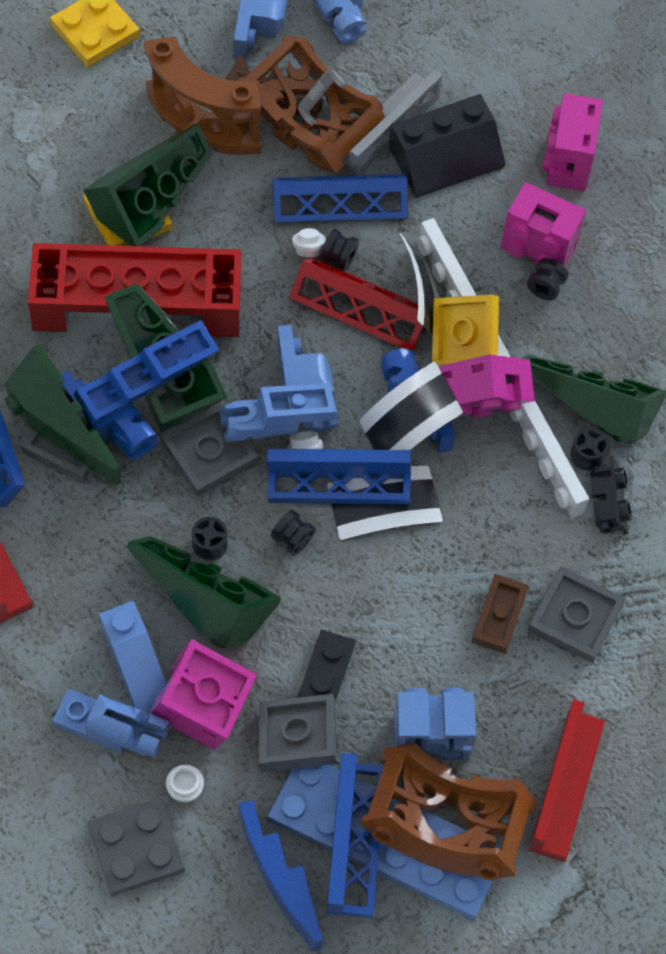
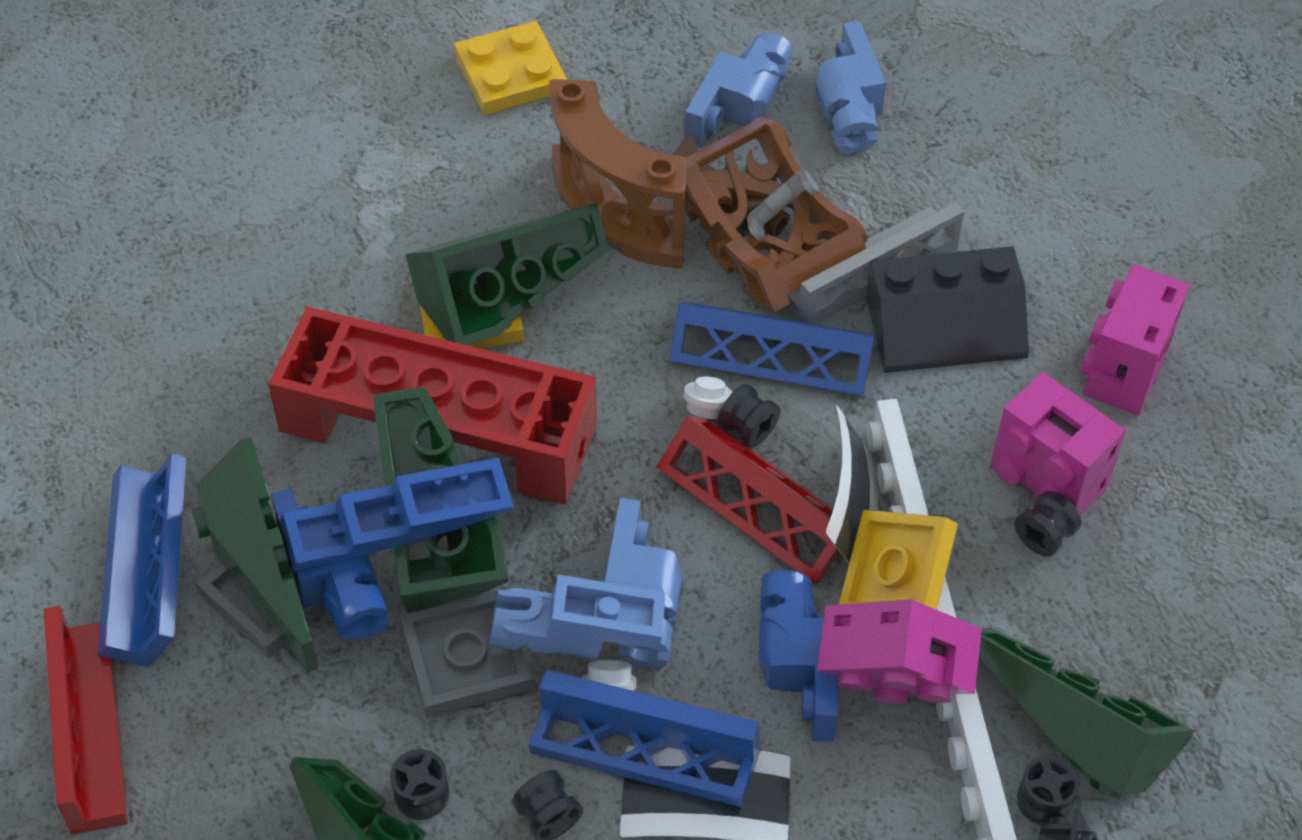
camera: 20 degrees right, 10 degrees down
(411, 411) = (780, 664): sticker -> none

